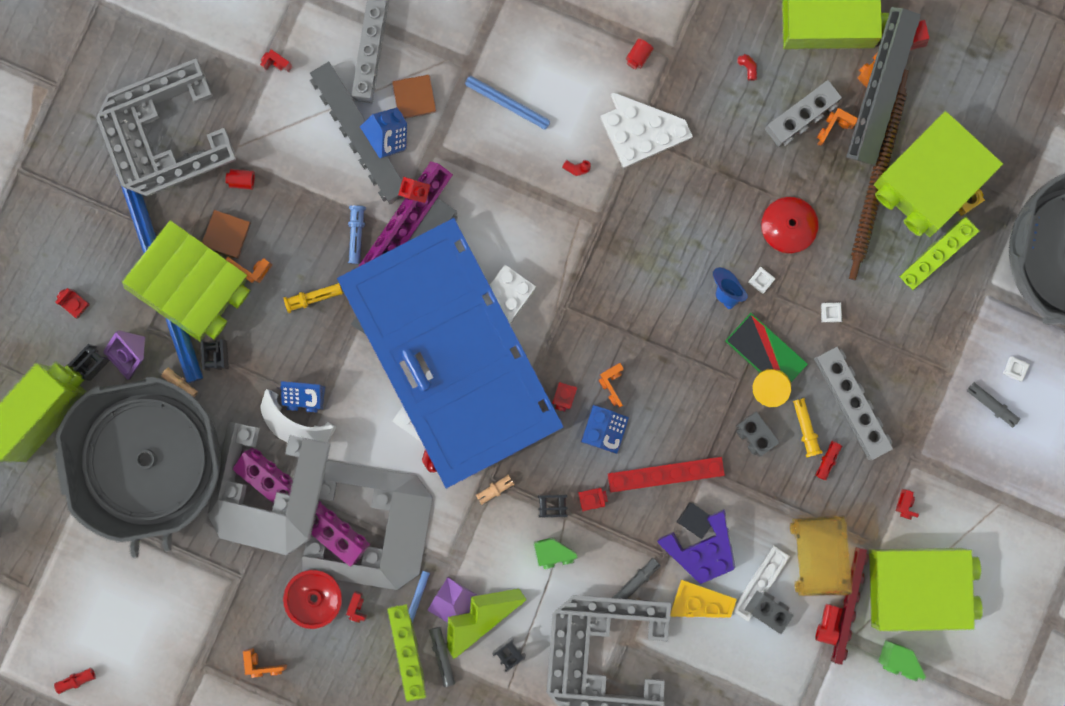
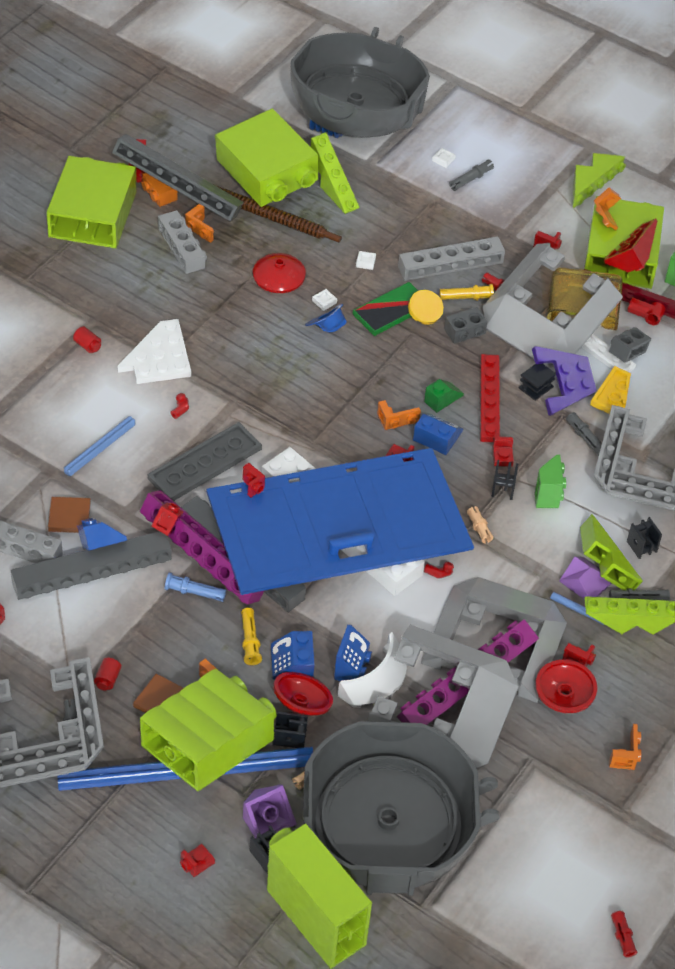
camera: 85 degrees left, 35 degrees down
(263, 360) = (302, 693): none -> red dish
(297, 341) = (293, 654): none -> blue slope
(470, 259) = (254, 480): none -> red bracket
(509, 208) = (205, 461): none -> dark grey plate
(656, 427) = (441, 394): none -> green slope
(751, 66) = (127, 269): red arm -> none
(772, 480) = (525, 328): none -> light grey slope
(886, 603) = (634, 250): none -> red wedge
(941, 562) = (605, 202): none -> orange bracket
(1022, 540) = (591, 178): none -> lime slope

